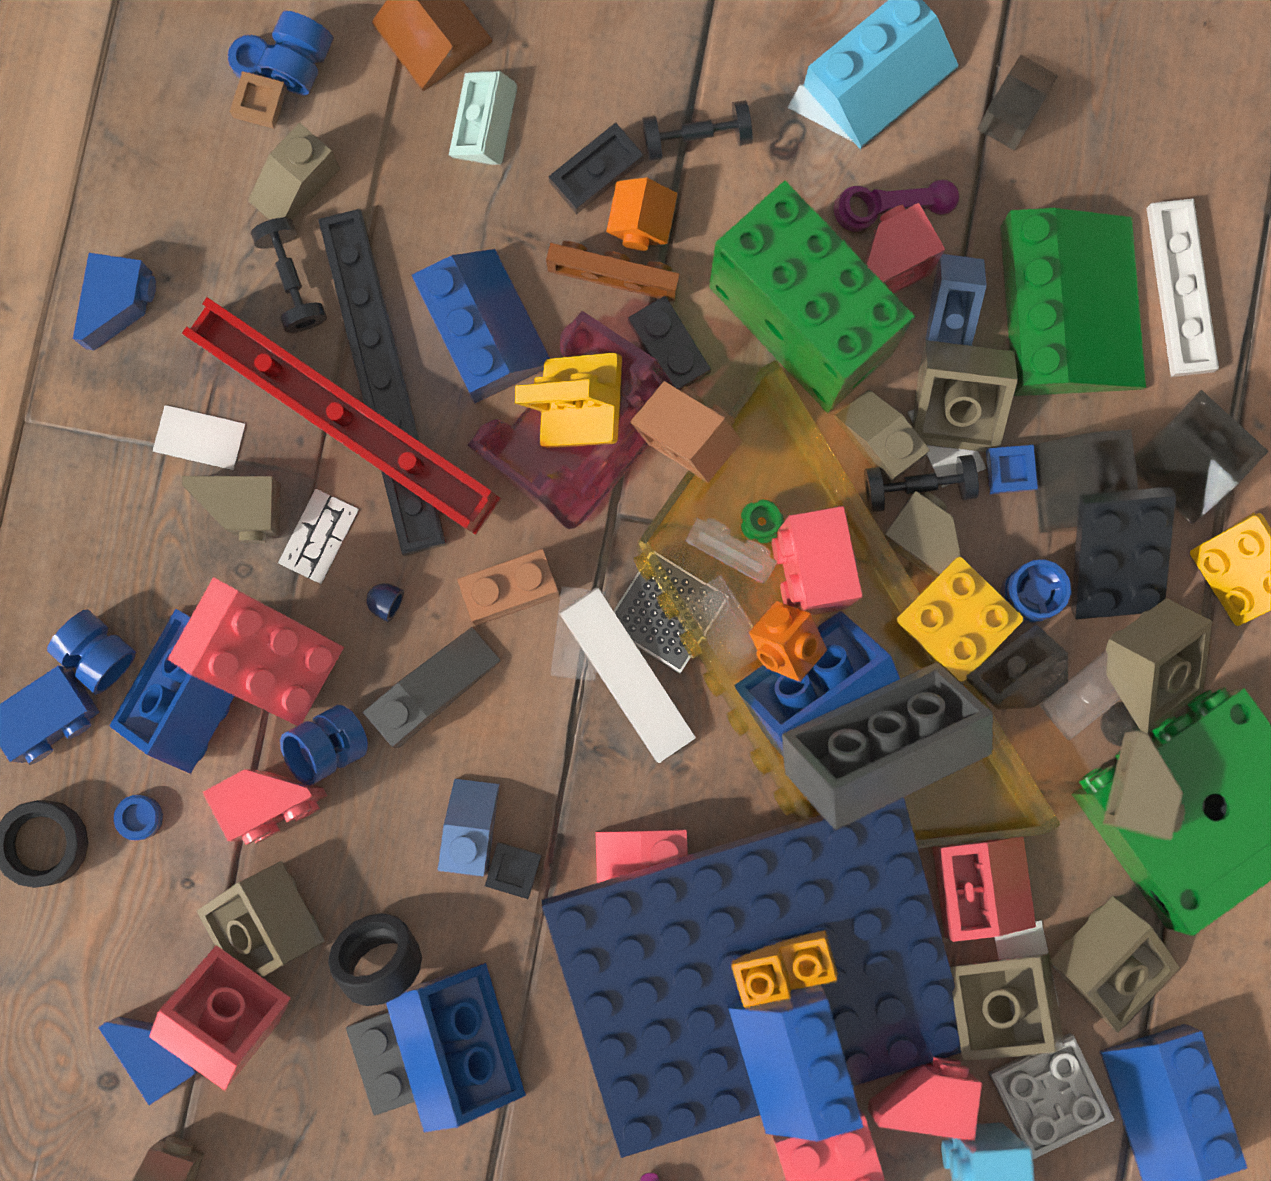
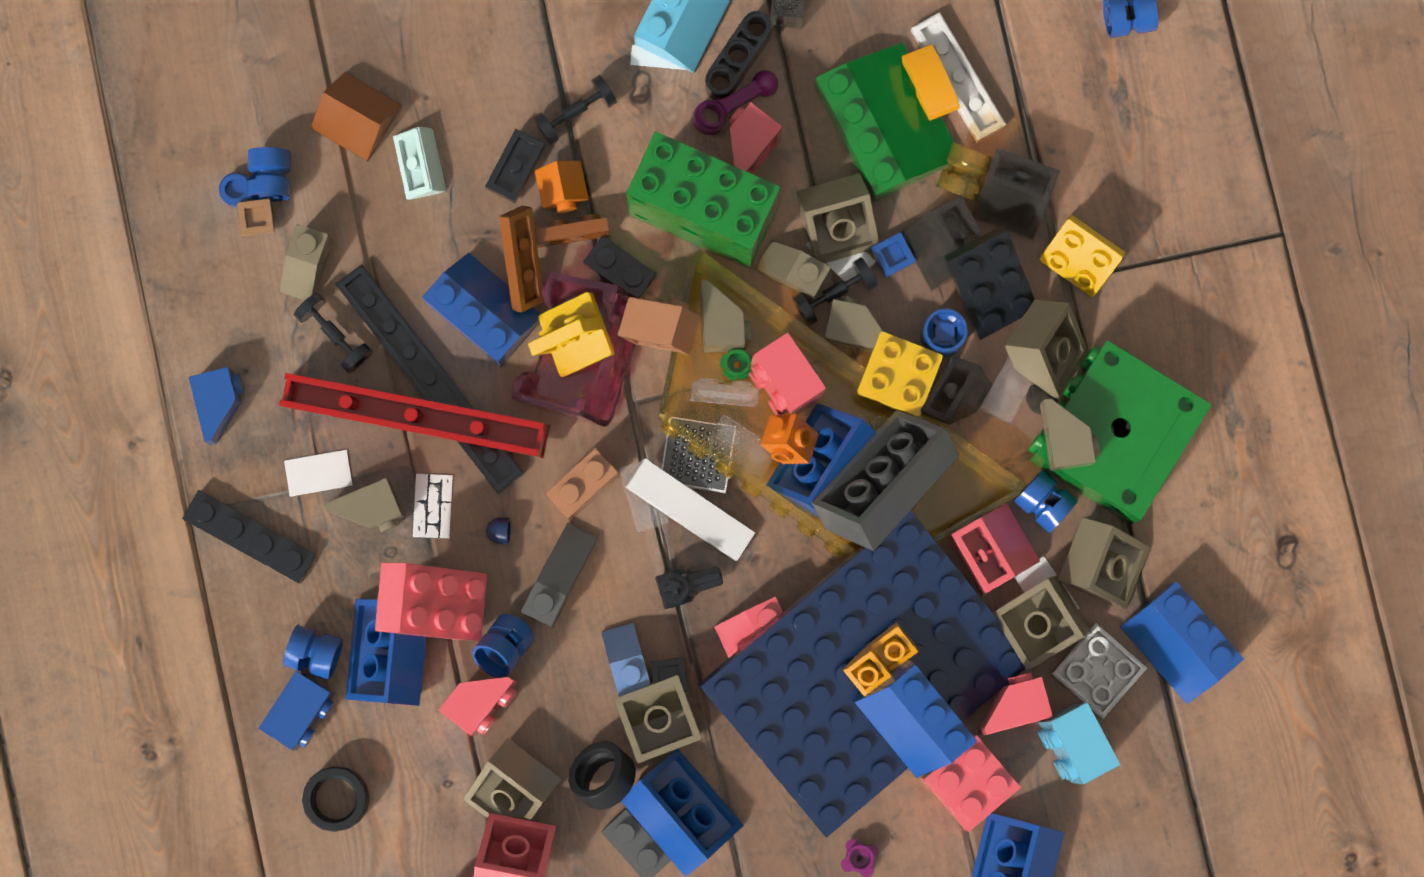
camera: 25 degrees left, 0 degrees up
(81, 478) = (249, 536): none -> black plate
(138, 817) = (394, 753): blue tile -> none
(474, 920) = (657, 719): none -> dark tan slope
(553, 278) = (521, 258): none -> dark orange plate
(573, 765) = (678, 586): none -> black axle
(766, 460) = (721, 321): none -> dark tan slope
(933, 131) = (743, 41): none -> black beam
(956, 299) = (805, 153): medium blue slope -> none
(1078, 839) = (1033, 498): none -> blue wheel
(1145, 403) = (964, 171): none -> clear yellow wheel
(1150, 277) = (931, 82): none -> light orange slope

